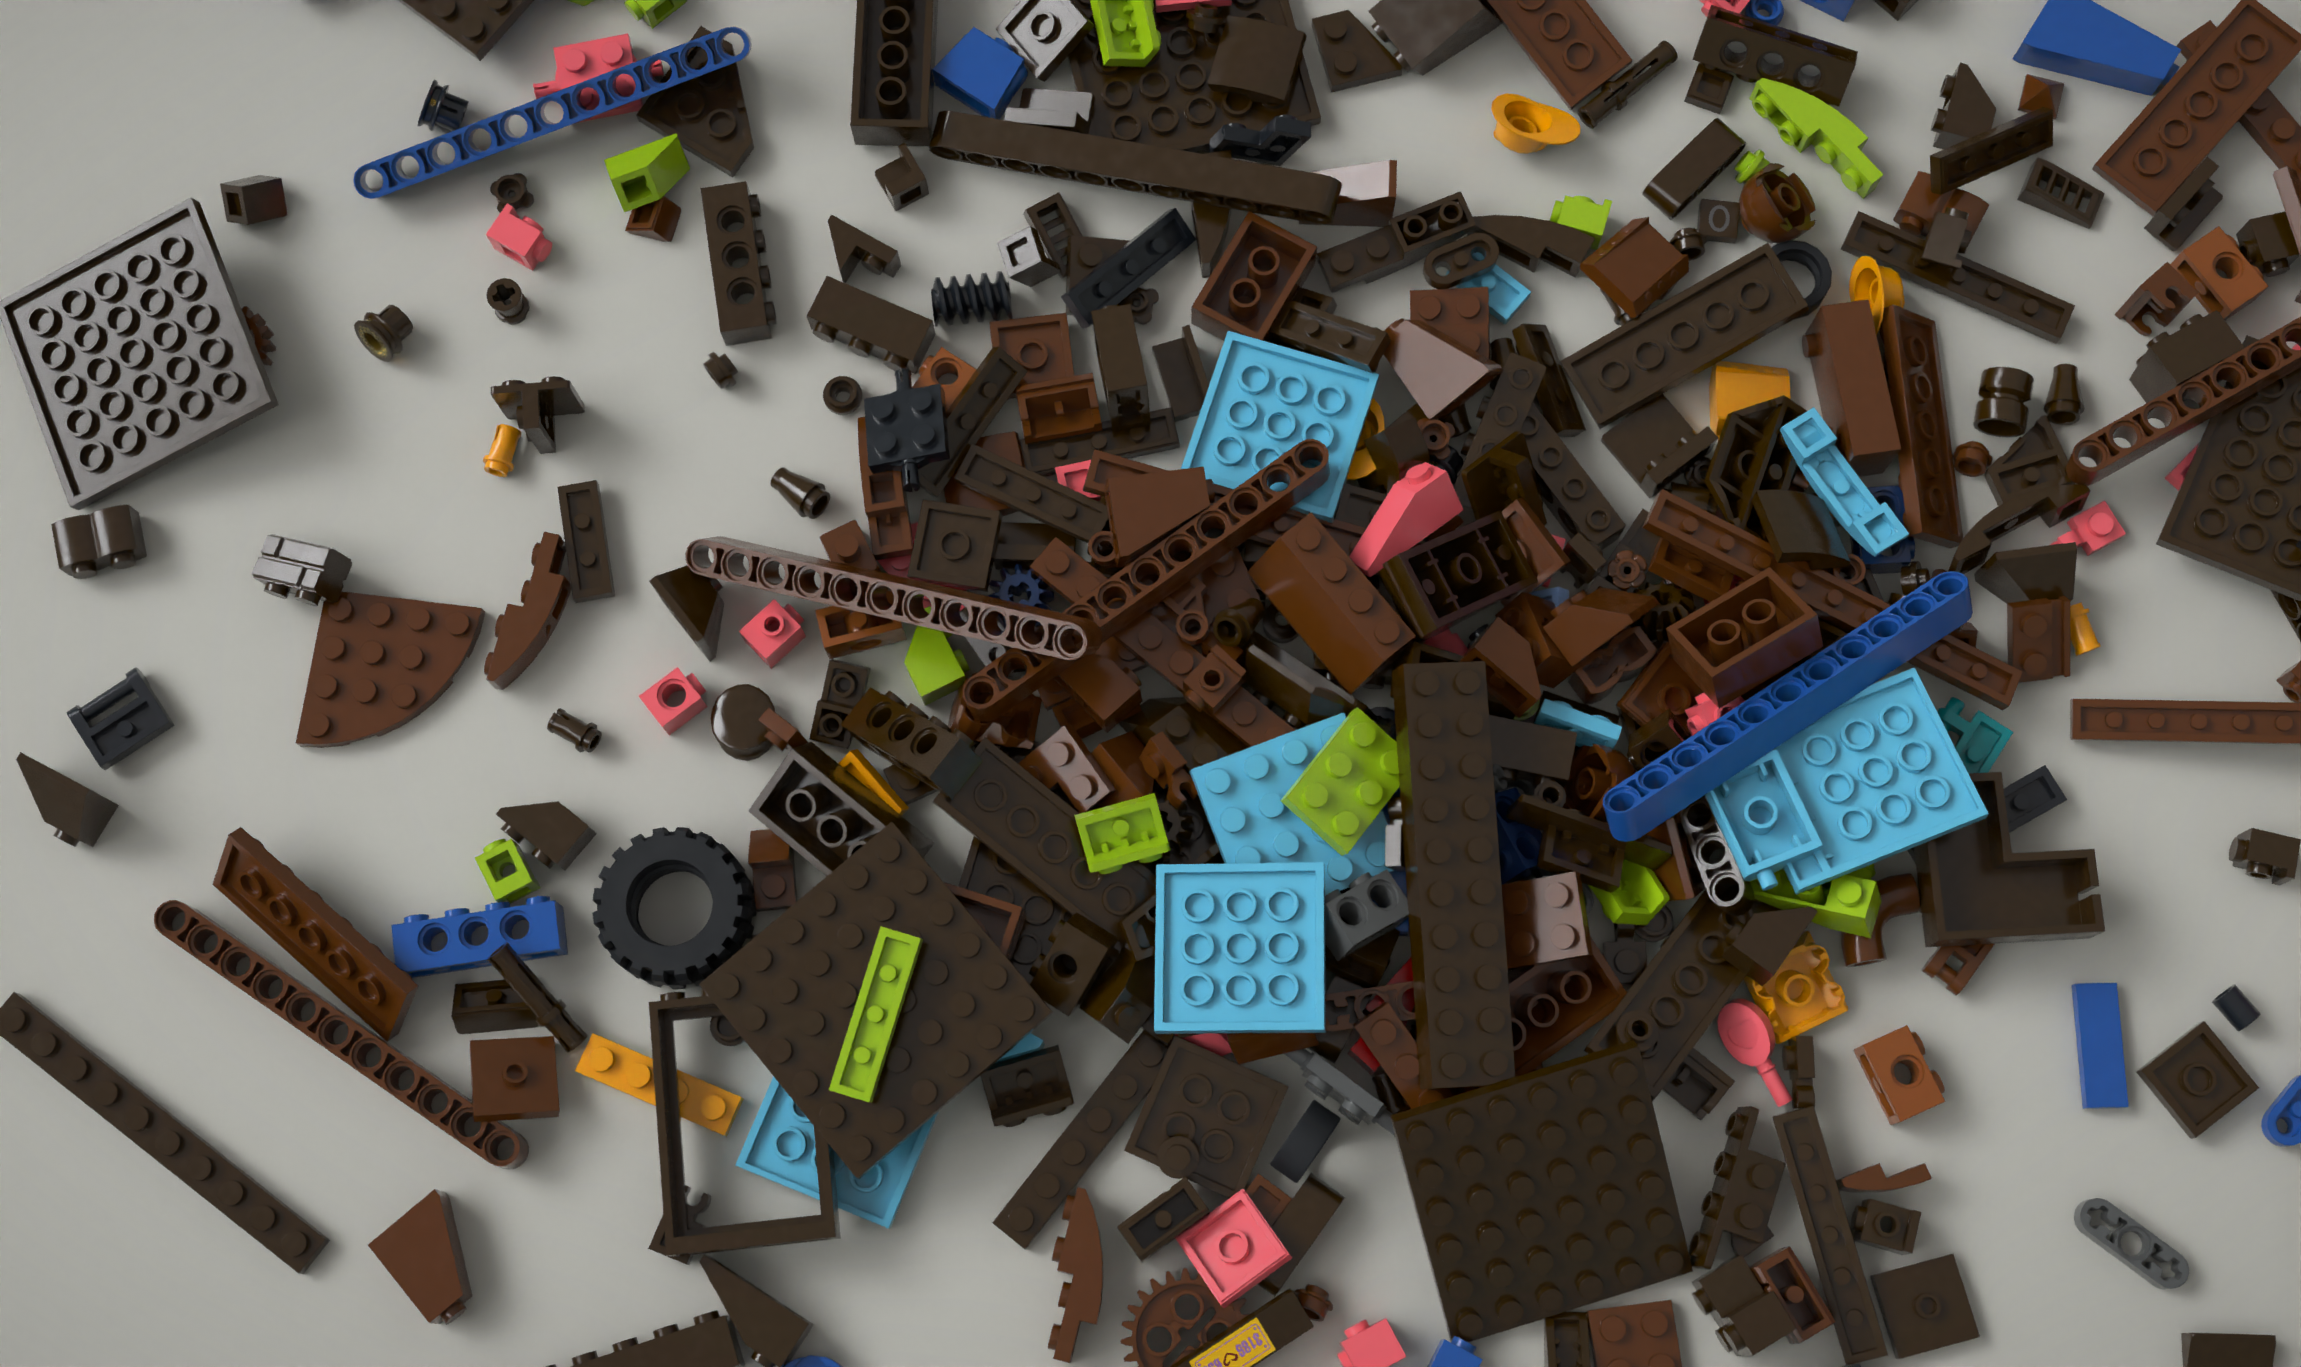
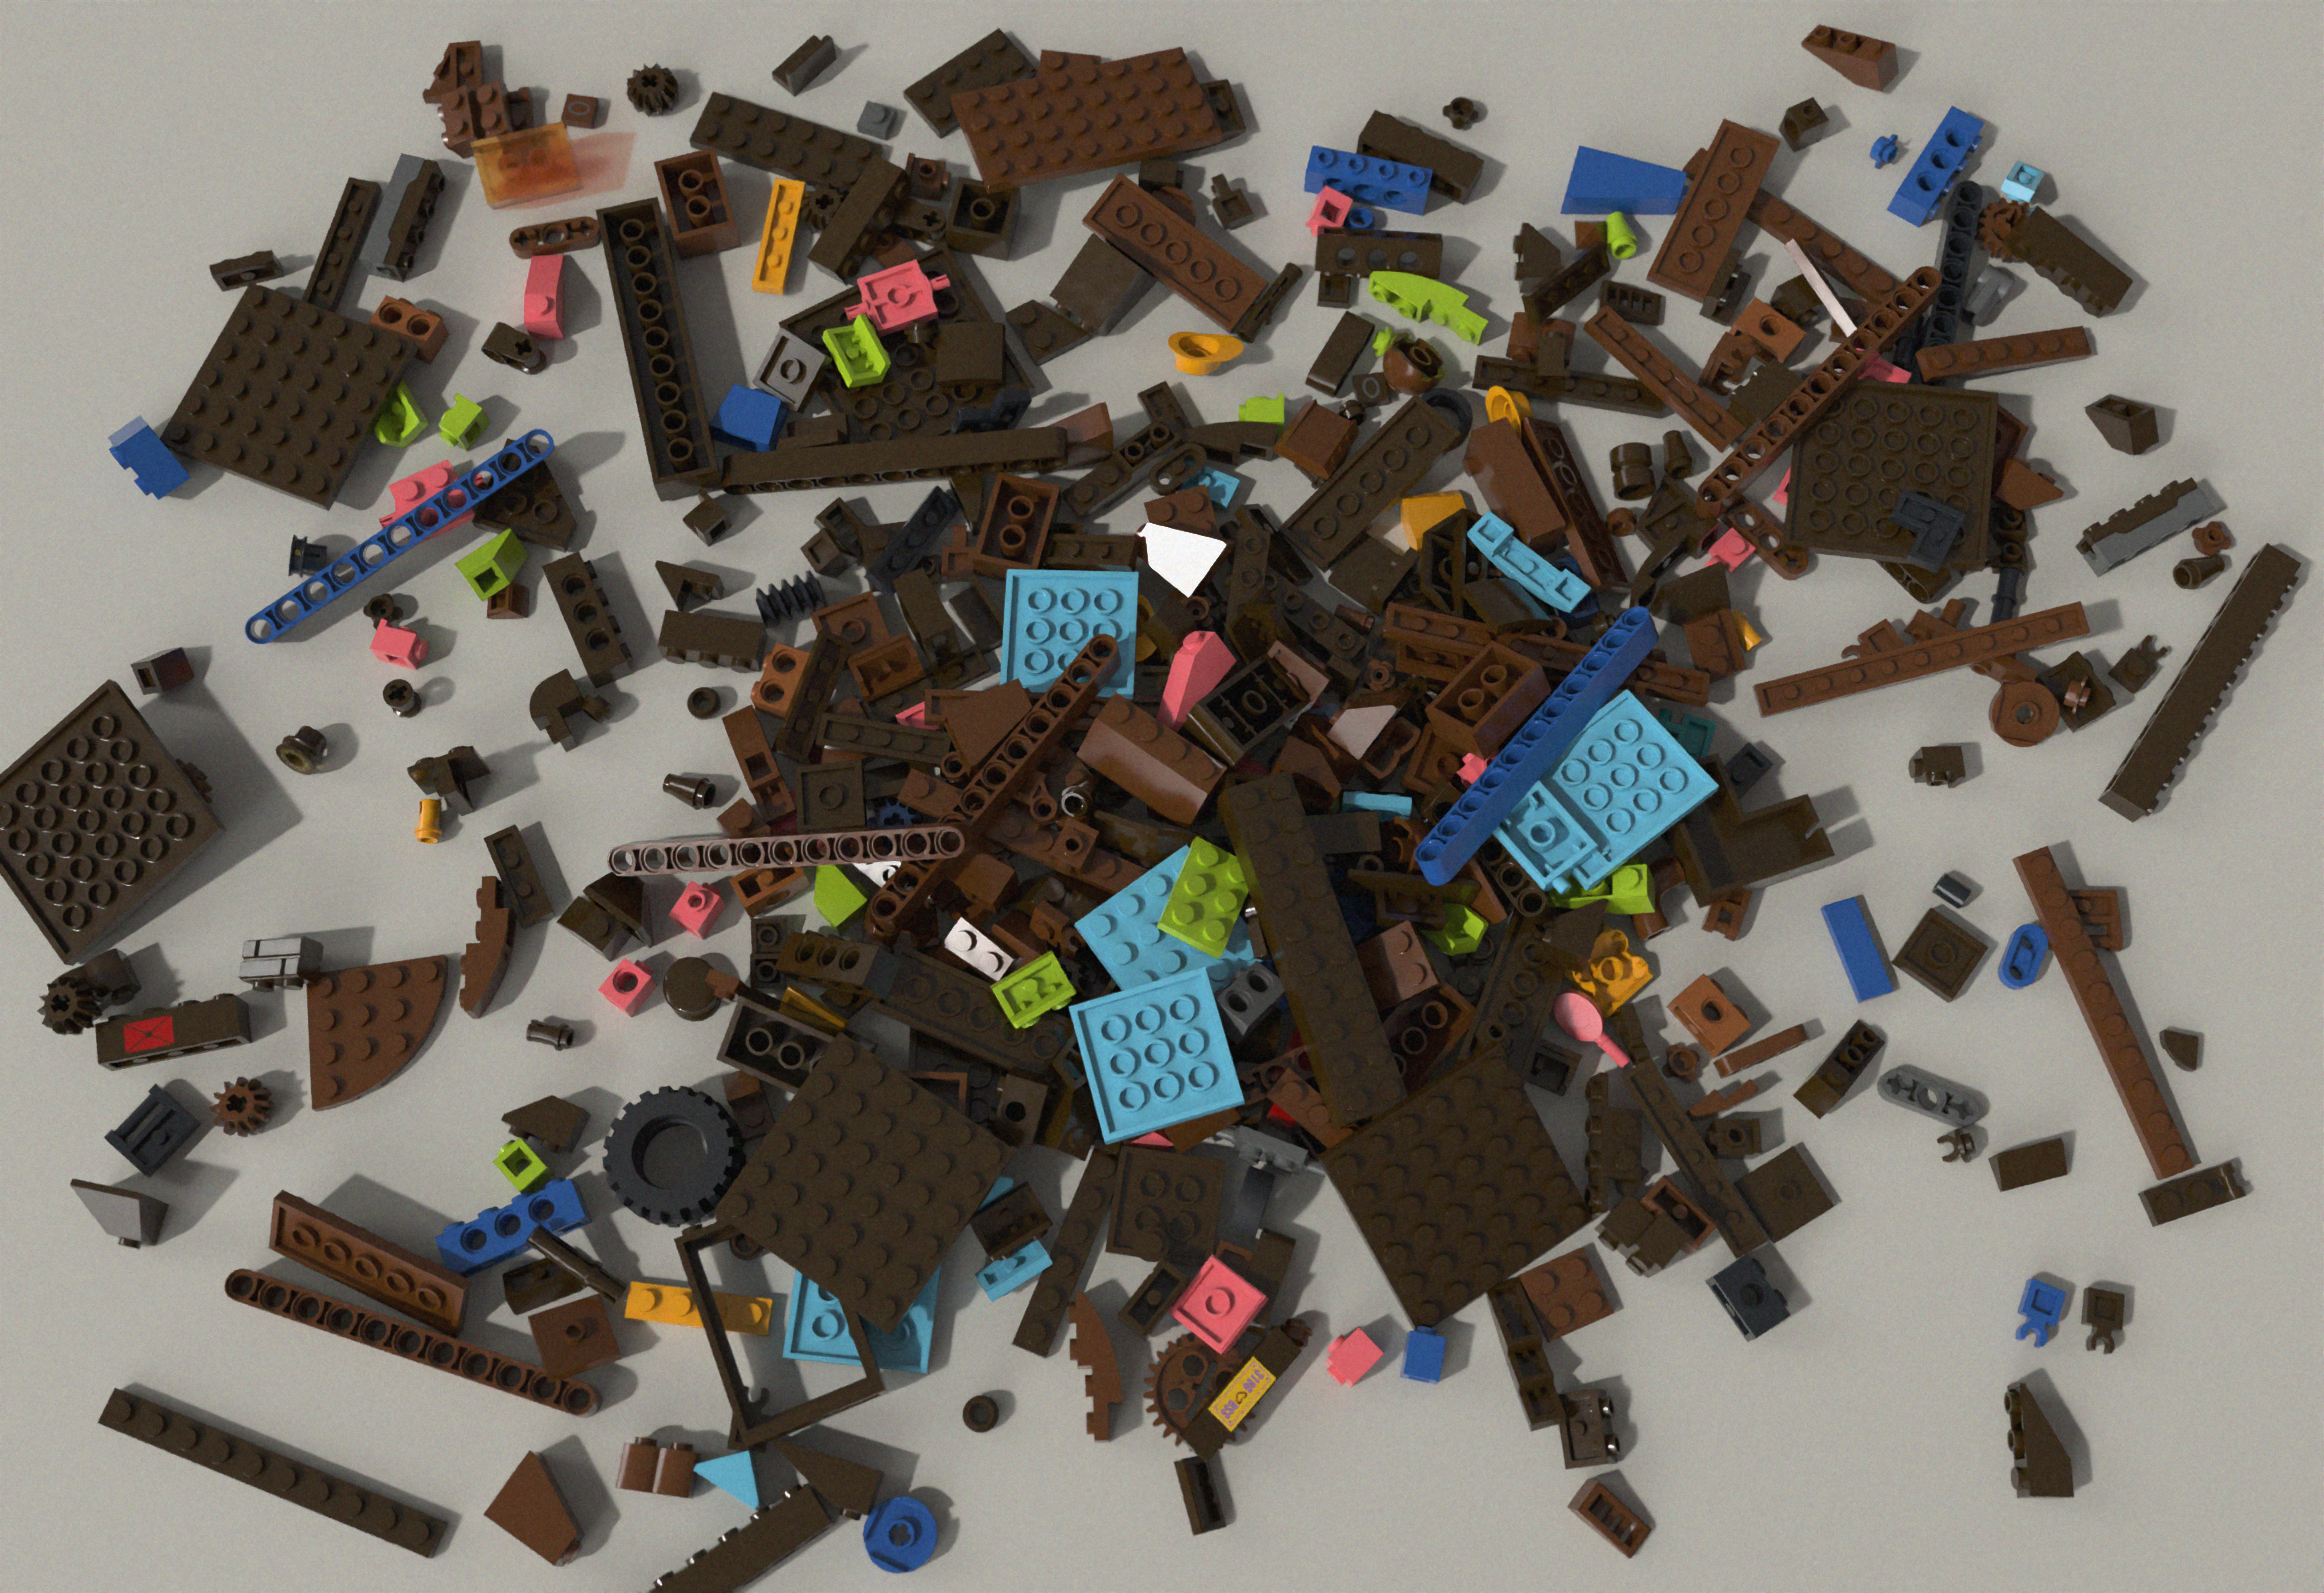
camera: 20 degrees left, 5 degrees down
(64, 557) = (70, 1005): none -> dark brown gear
(168, 615) = (173, 1032): none -> dark brown brick
(210, 711) = (230, 1102): none -> reddish brown gear
(568, 1249) = (658, 1469): none -> reddish brown brick
(650, 1282) = (735, 1475): none -> medium azure slope
(654, 622) = (595, 928): none -> dark brown slope
(675, 349) = (552, 703): none -> dark brown brick
(876, 1014) = (870, 1193): lime plate -> none
(906, 429) = (765, 714): black plate -> none
(923, 1287) = (980, 1402): none -> dark brown plate
(1004, 1145) = (1003, 1276): none -> medium azure plate
(1176, 300) = (957, 559): none -> reddish brown plate
(1464, 173) = (1161, 401): none -> dark brown plate
(1619, 494) = (1356, 620): none -> reddish brown pin
(1861, 1120) = (1688, 1057): none -> reddish brown plate
(1949, 1133) = (1761, 1051): none -> reddish brown beam
(2035, 1180) = (1839, 1069): none -> dark brown slope
(2076, 108) = (1620, 237): none -> lime cone
(2076, 299) = (1664, 379): none -> reddish brown plate
(2140, 509) = (1764, 527): none -> reddish brown beam
(2155, 1310) = (1962, 1144): none -> dark brown plate
(2236, 684) = (1875, 640): none -> reddish brown plate

